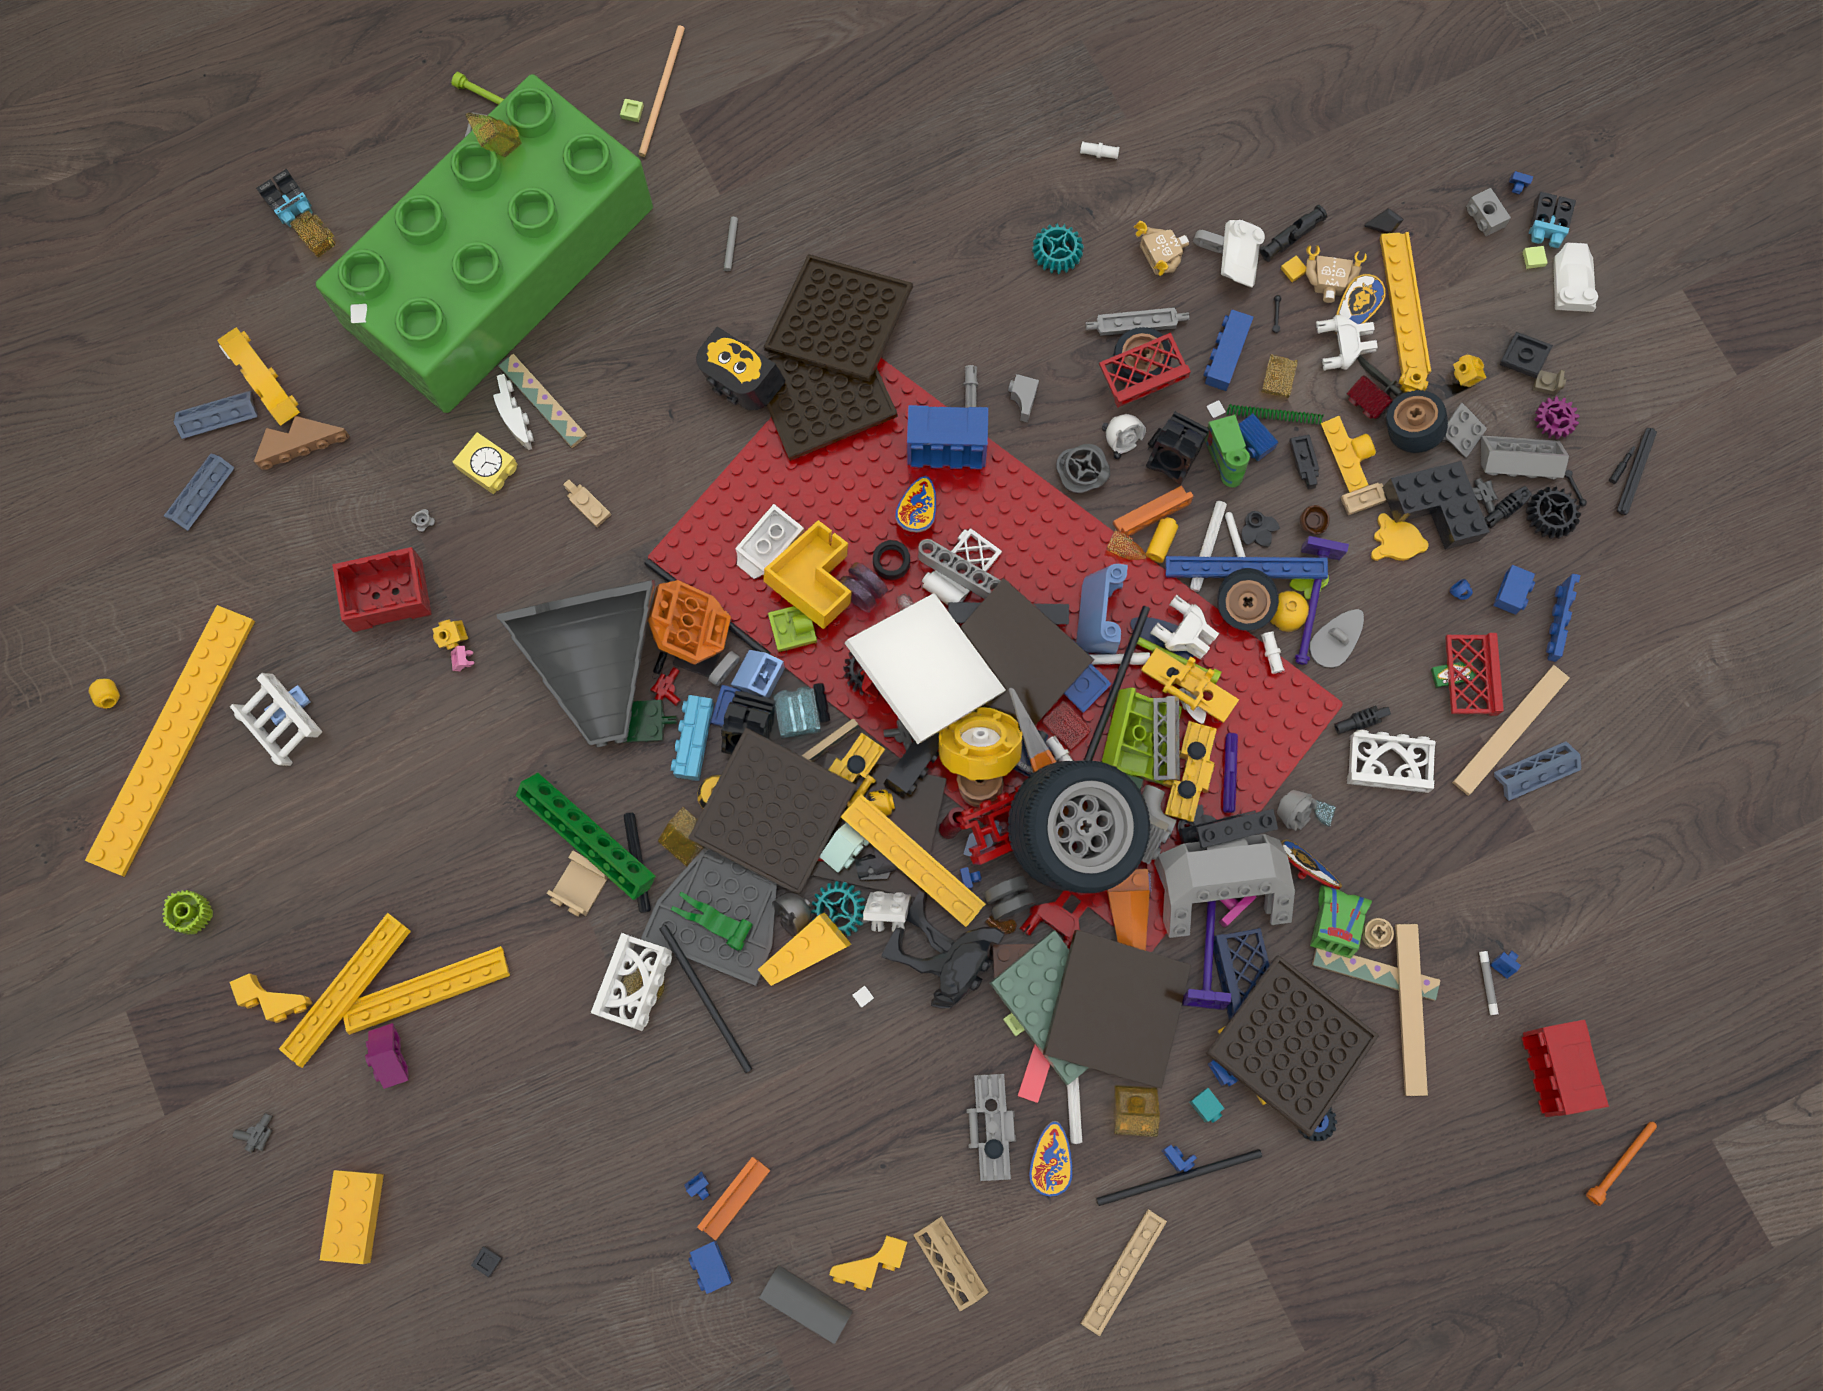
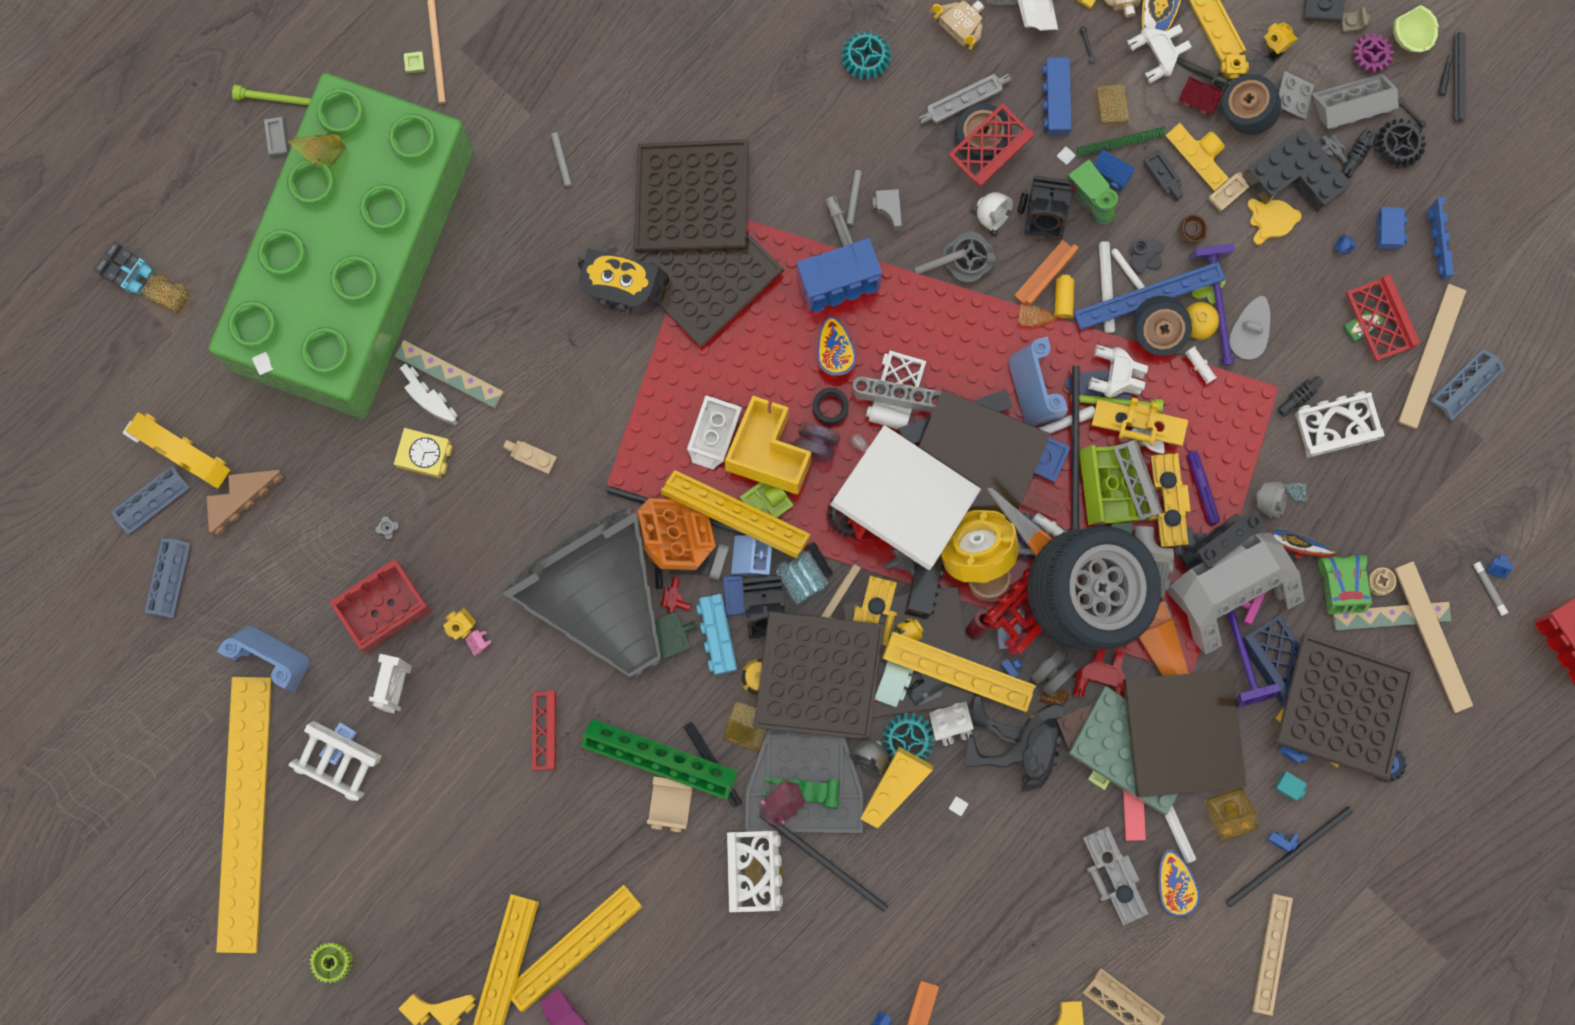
camera: 20 degrees left, 5 degrees up
(104, 693) = (165, 796): yellow head -> none
(271, 611) = (288, 662): none -> medium blue windscreen
(352, 648) = (388, 695): none -> white fence
(493, 769) = (551, 731): none -> red fence
(686, 923) = (782, 803): none -> clear pink brick
(756, 627) = (735, 514): none -> yellow plate
(993, 376) = (853, 198): none -> light grey bar
(1053, 461) = (940, 261): none -> light grey bar
(1608, 409) = (1416, 30): none -> yellowish green cylinder

